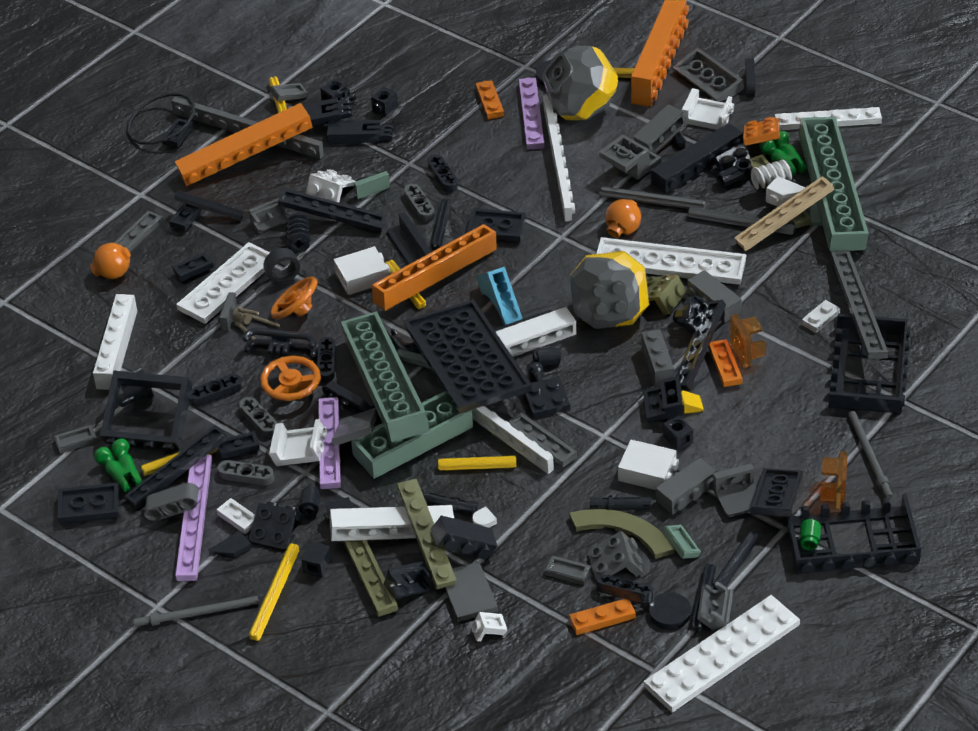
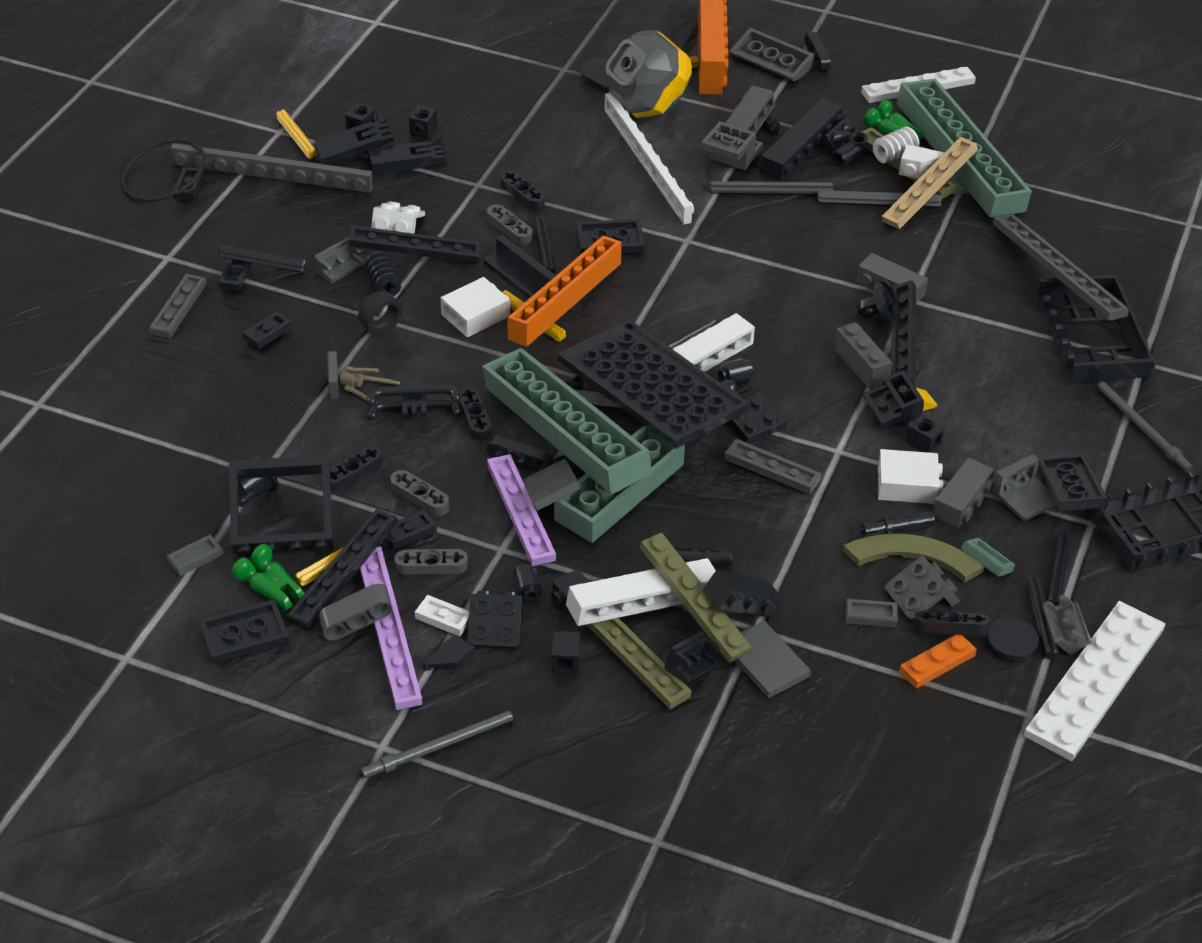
camera: 20 degrees left, 0 degrees up
(110, 261) = (164, 336): orange brick -> none
(115, 340) = (205, 431): white brick -> none
(232, 276) = (307, 352): white plate -> none
(243, 144) = (278, 185): orange brick -> none
(274, 592) = (527, 703): yellow axle -> none
(288, 91) = (306, 124): dark grey tile -> none
(291, 380) = (446, 442): orange piece -> none
(295, 299) = (415, 350): orange piece -> none
(297, 445) = (486, 517): white panel -> none
(372, 185) = (447, 212): sand green tile -> none
(477, 463) = (707, 505): yellow axle -> none
(484, 518) = (746, 566): white tile -> none
(488, 624) = (810, 694): white bracket -> none
(489, 99) = (541, 107): orange plate -> none
(499, 290) = (653, 305): medium azure arch -> none
(514, 438) = (742, 470): white plate -> none
(531, 113) = (595, 116): lavender plate -> none
(609, 289) = (783, 286): dark grey rock -> none
(622, 217) = (751, 210): orange brick -> none
(666, 291) = (833, 279): olive bracket -> none
(683, 261) = (820, 249): white plate -> none
(707, 112) = (791, 93): white panel -> none
(725, 363) = (939, 351): orange plate -> none
(742, 342) = (952, 322): clear orange panel -> none
(761, 131) = (863, 102): orange plate -> none
(810, 534) = (1130, 523): green brick -> none
(820, 316) = (1014, 286): white plate -> none
(838, 468) = (1135, 457): clear orange panel -> none

